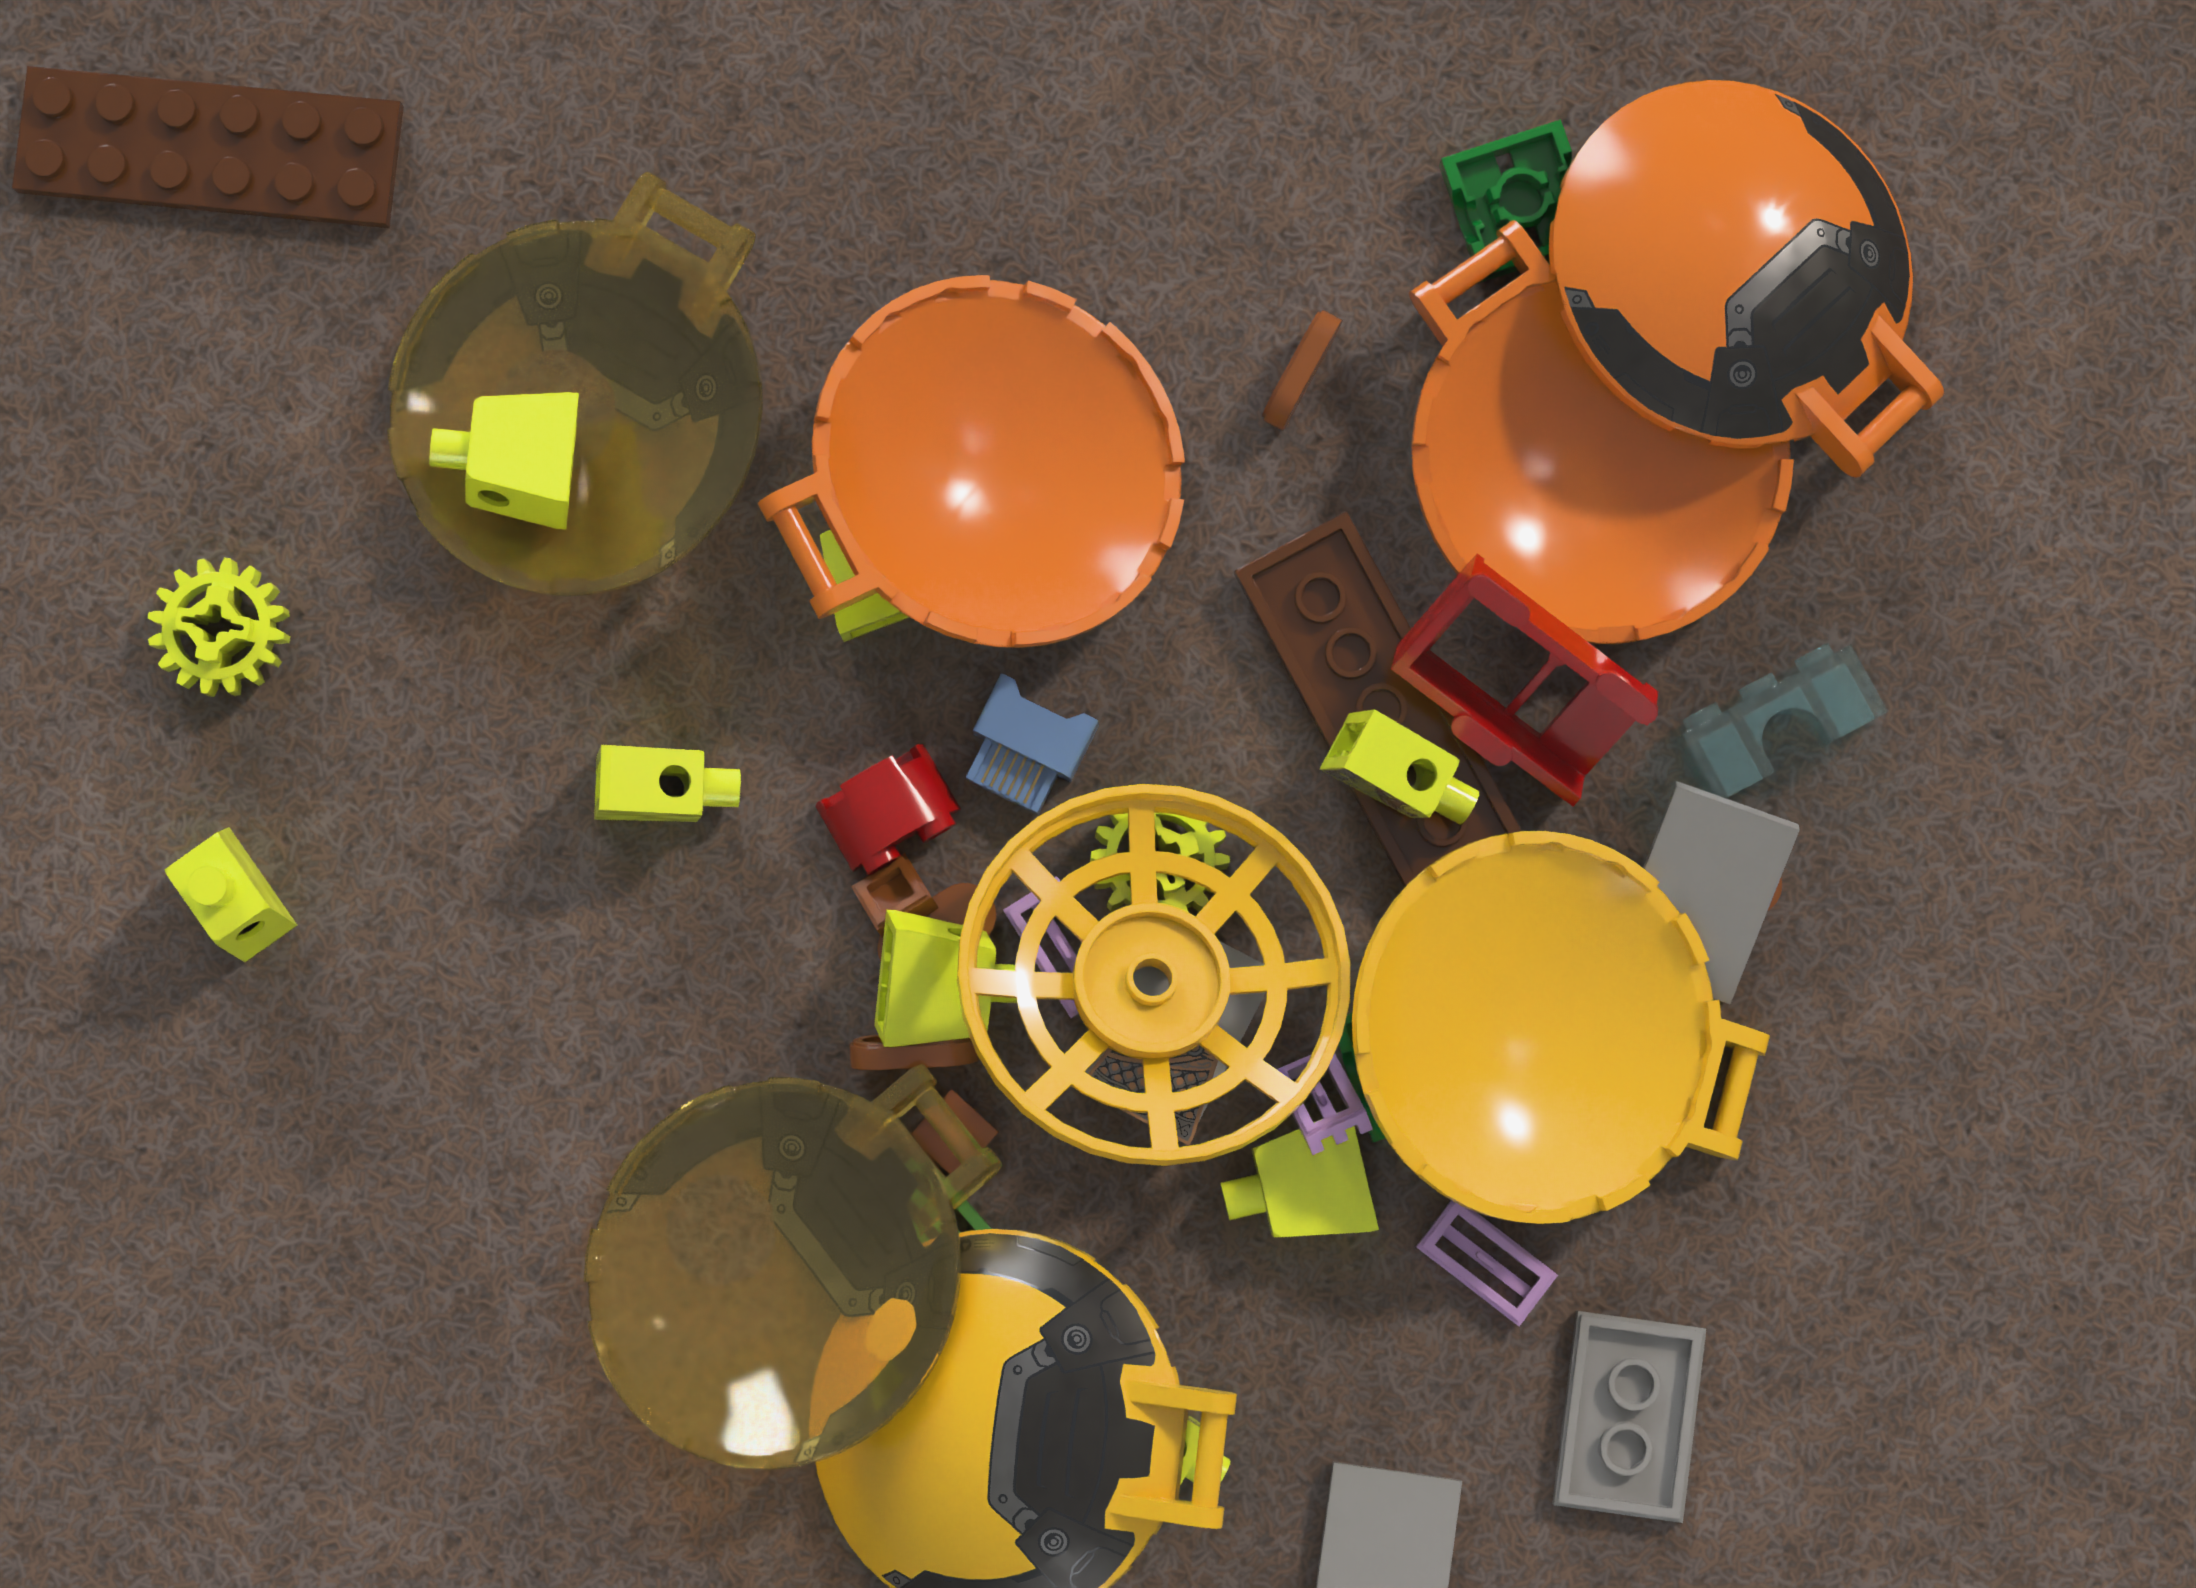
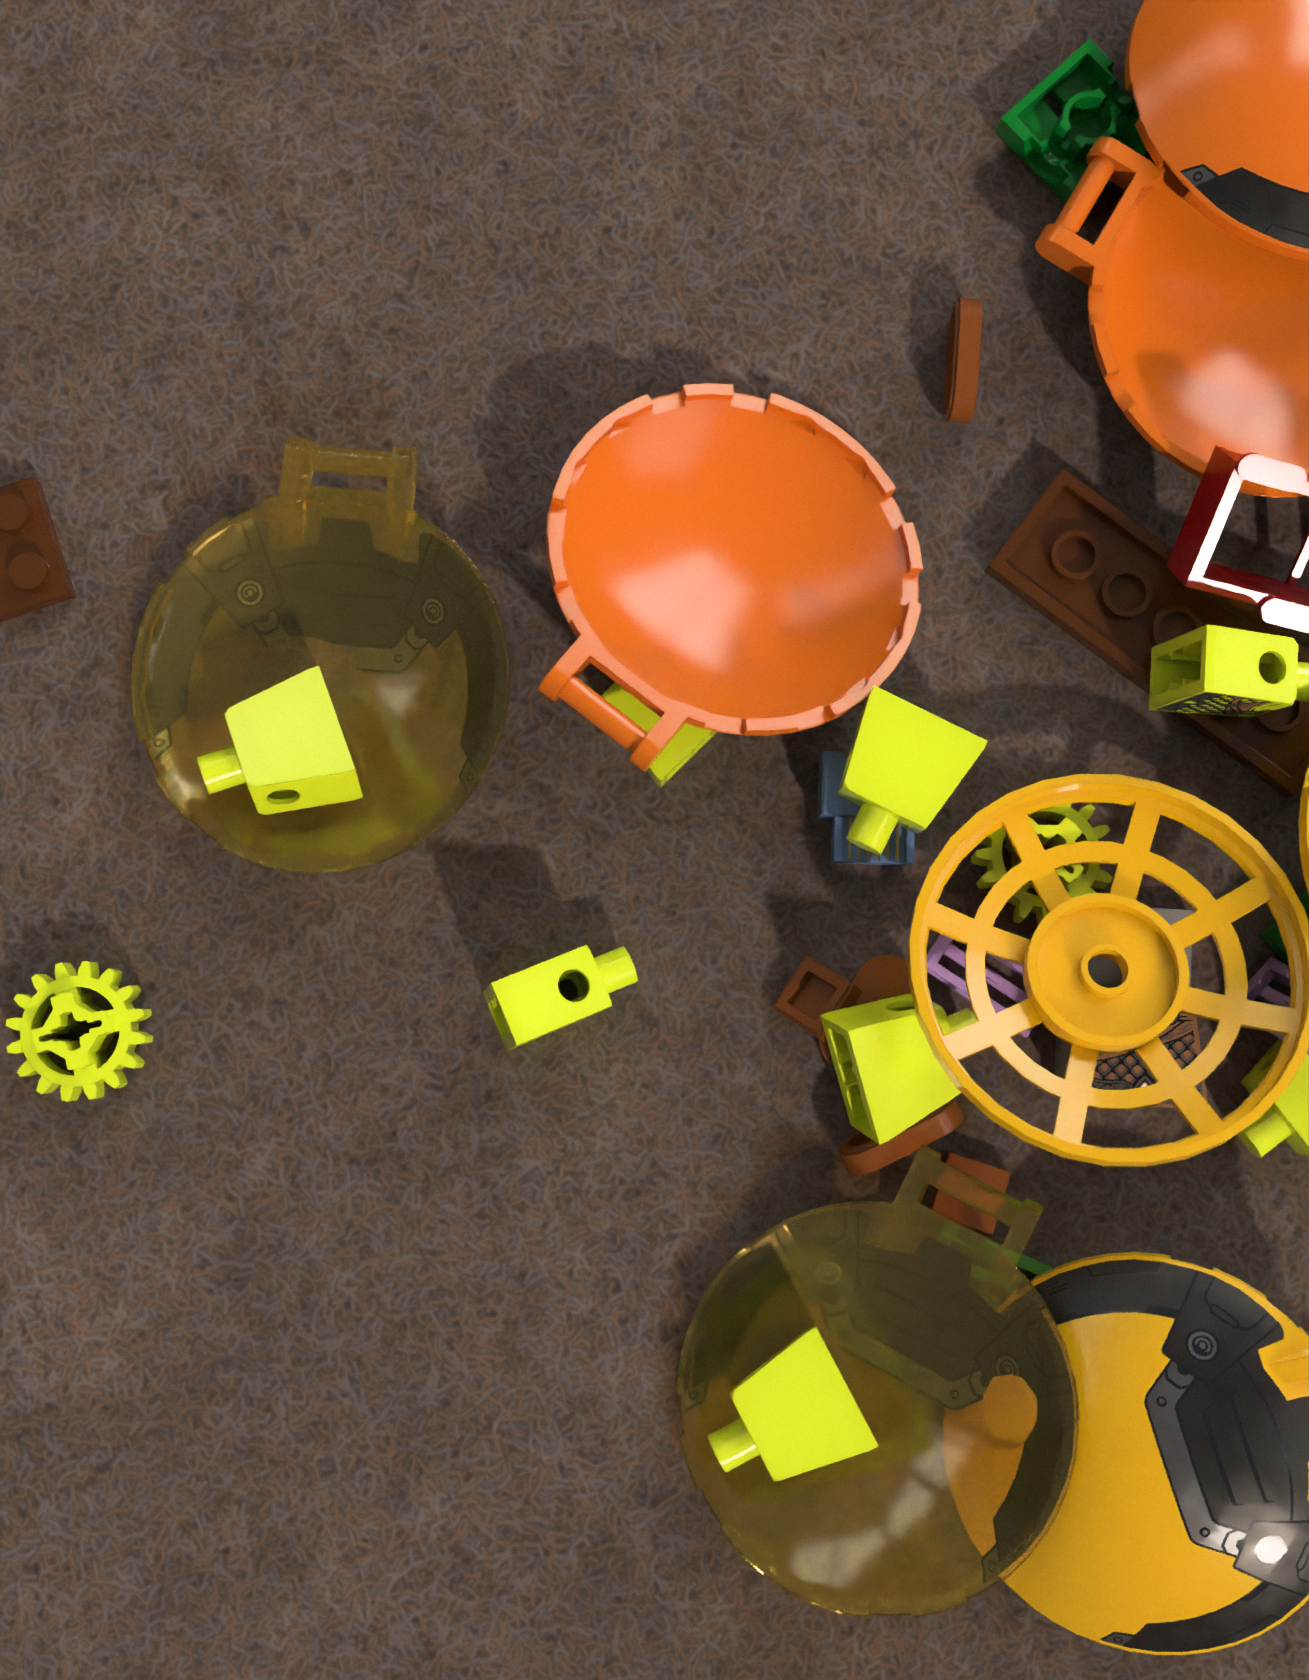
camera: 30 degrees left, 0 degrees up
(229, 895) = (199, 1277): neon yellow torso -> none
(700, 1246) = (794, 1413): none -> neon yellow torso
(888, 807) = (772, 923): red cylinder -> none
(1057, 719) = (902, 768): none -> neon yellow torso

